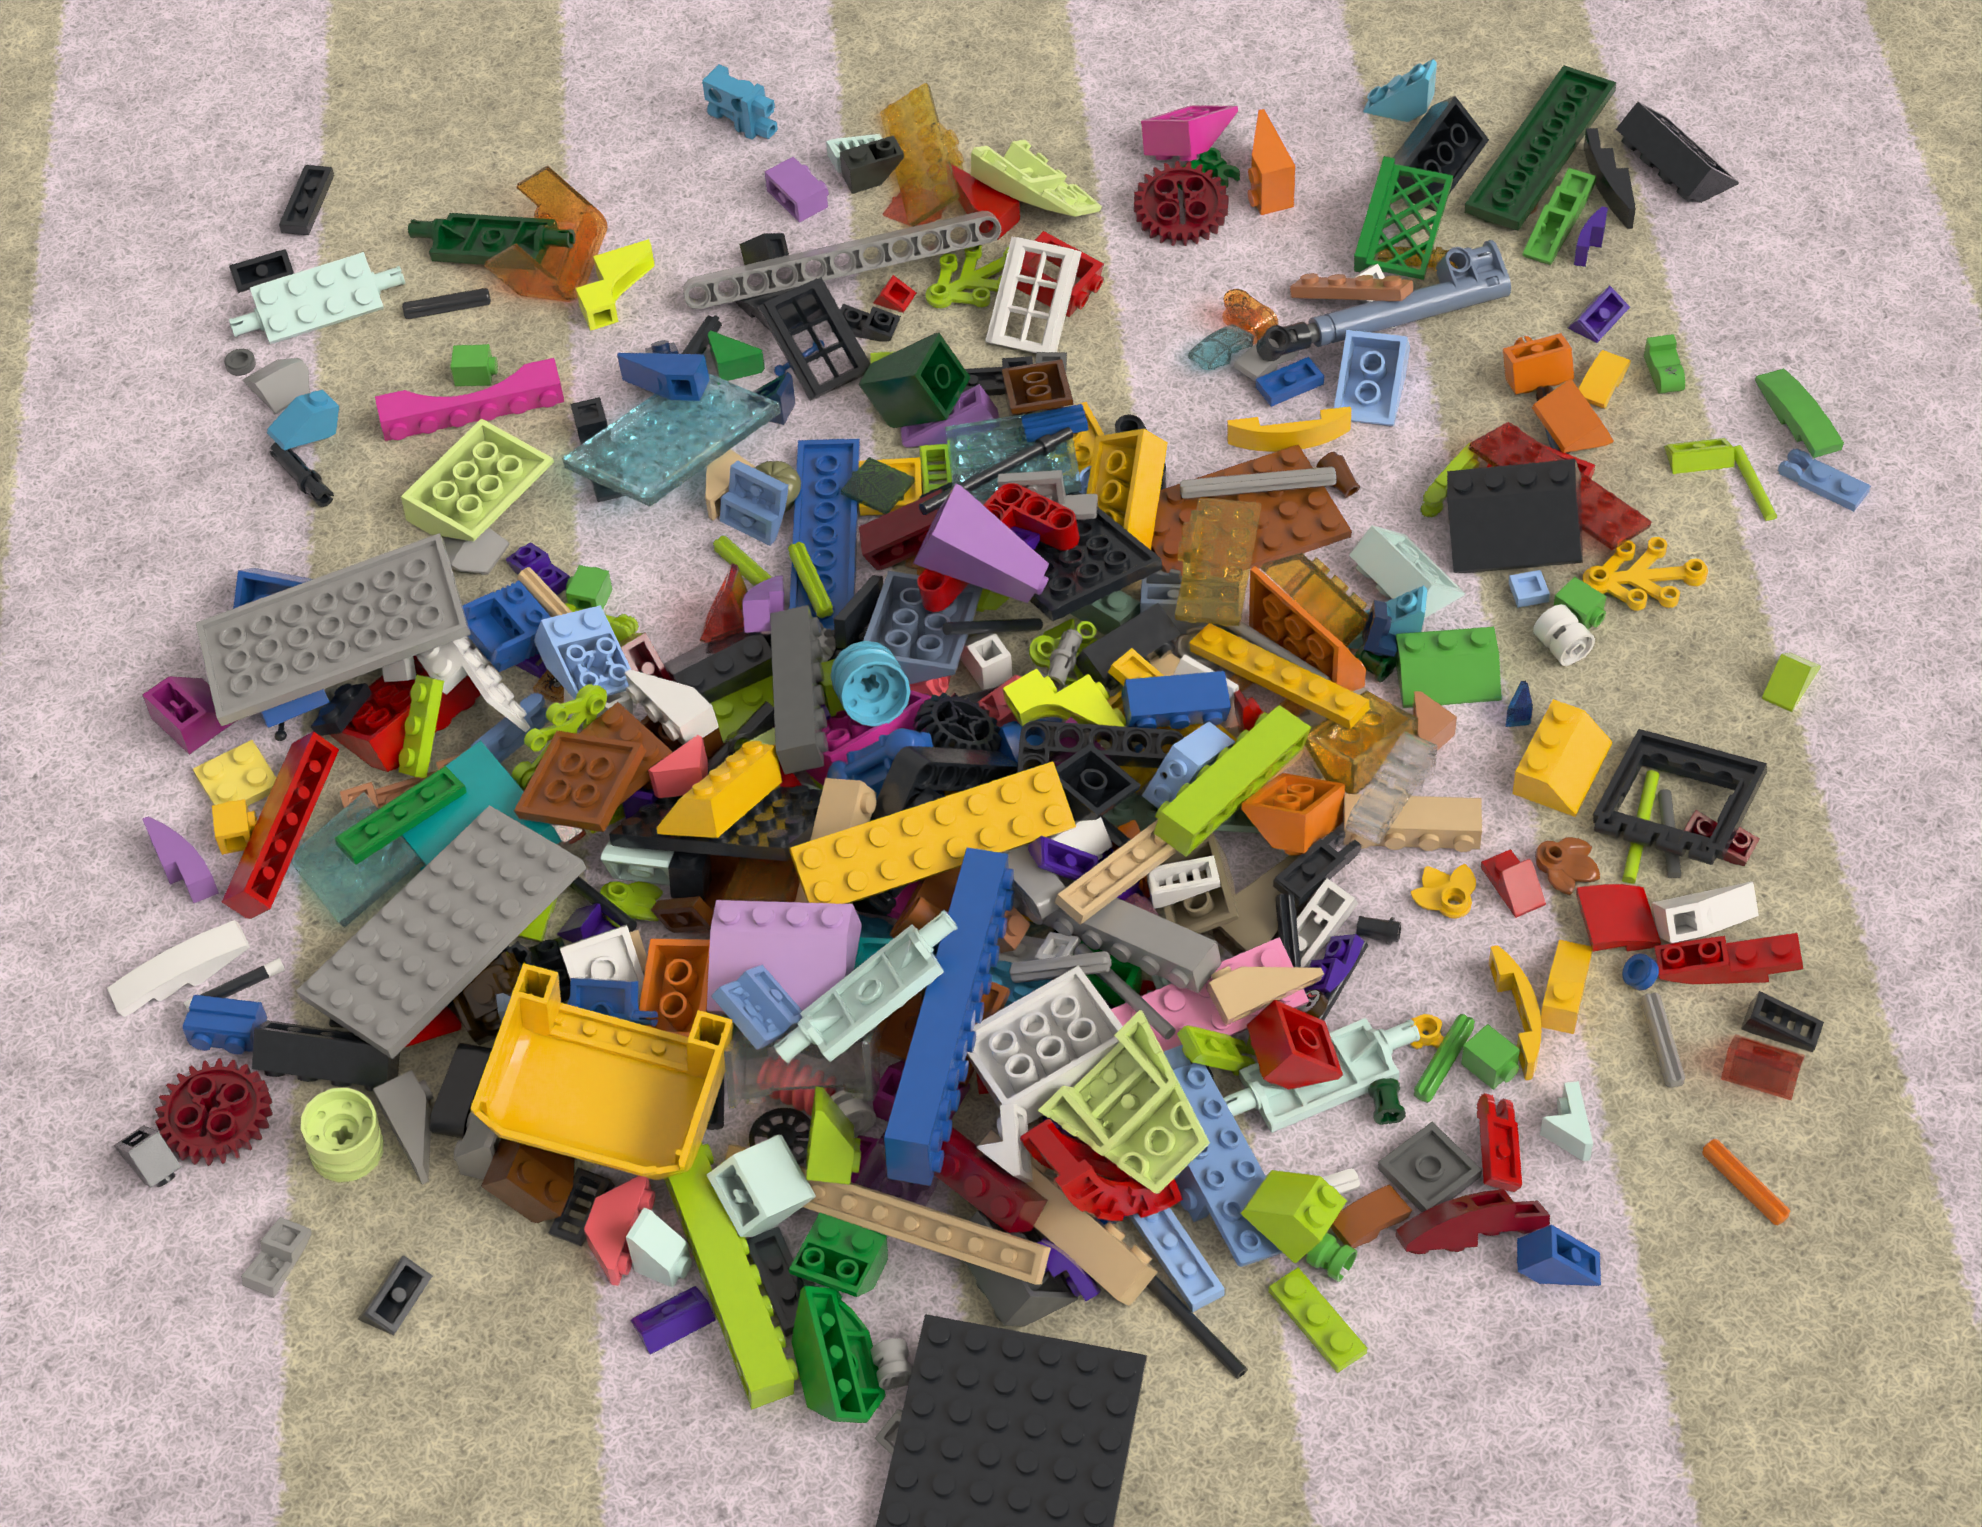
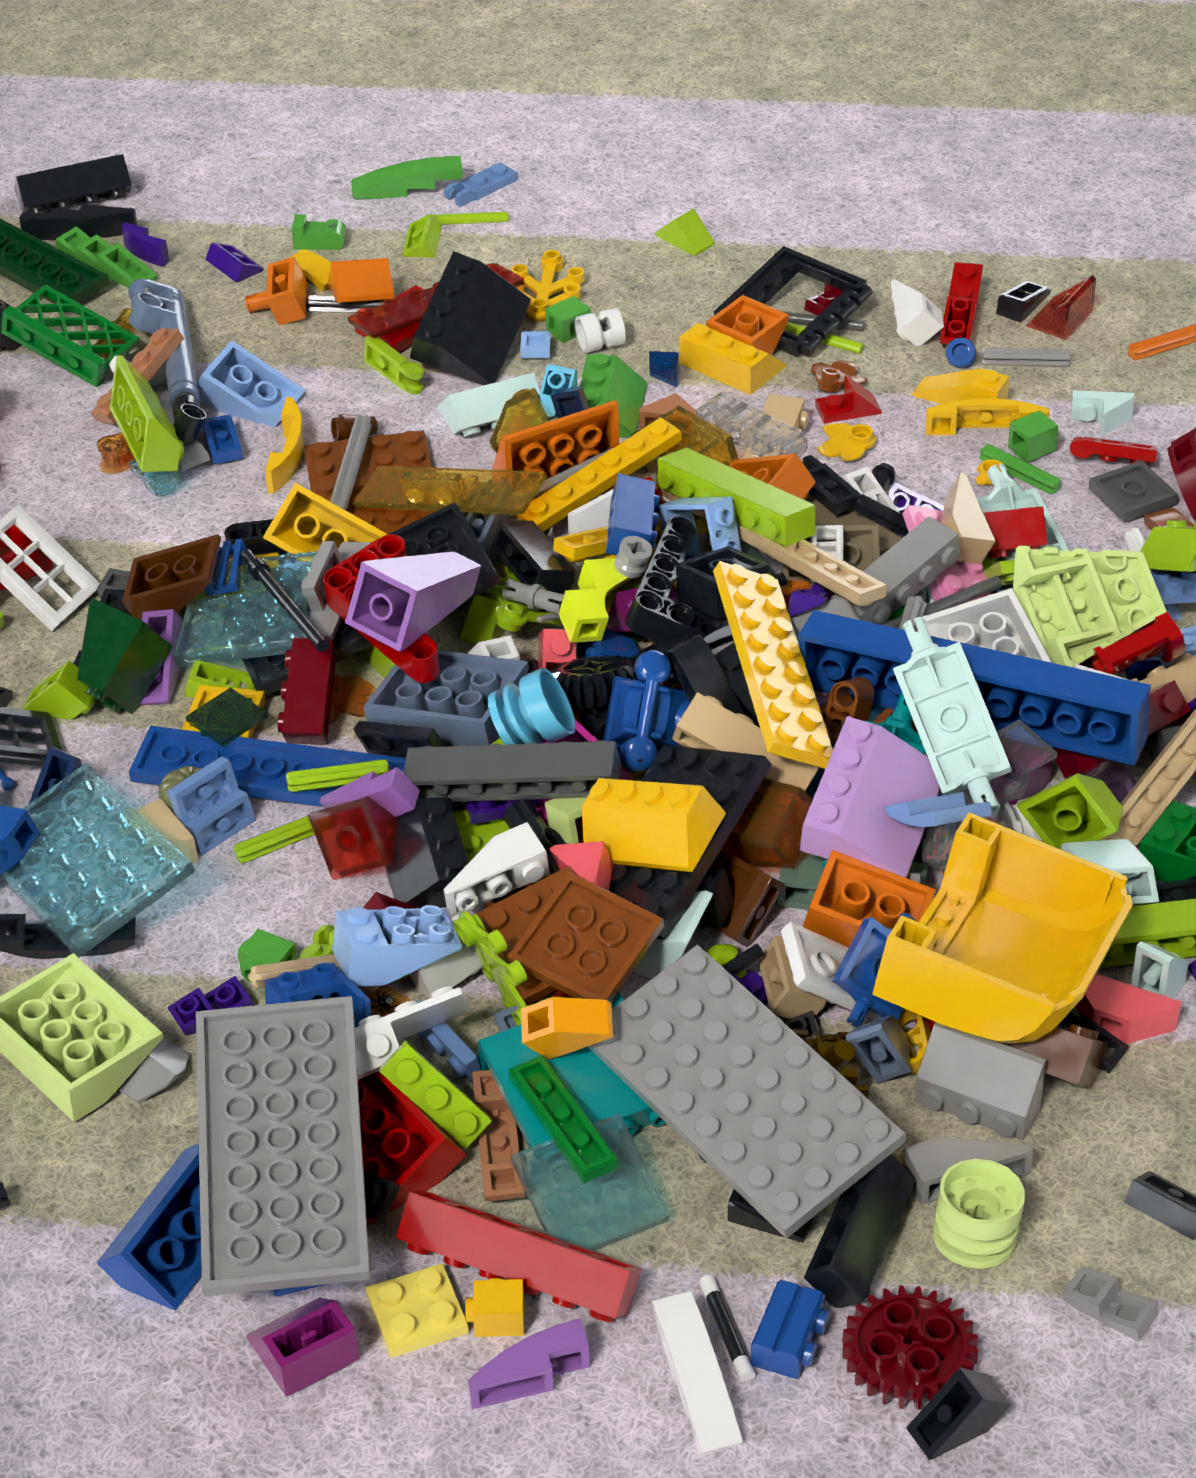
camera: 80 degrees left, 10 degrees down
(458, 1090) = (927, 1115): black beam -> none
(476, 784) = (565, 1025): none -> light orange slope
(992, 626) = (466, 645): black bar -> none
(1101, 716) = (633, 556): none -> light grey wheel
(1256, 304) = (143, 421): none -> lime slope
(1386, 1101) = (1062, 502): dark green bush -> none
(1600, 758) = (751, 323): none -> orange slope
(1617, 917) = (902, 358): red slope -> none

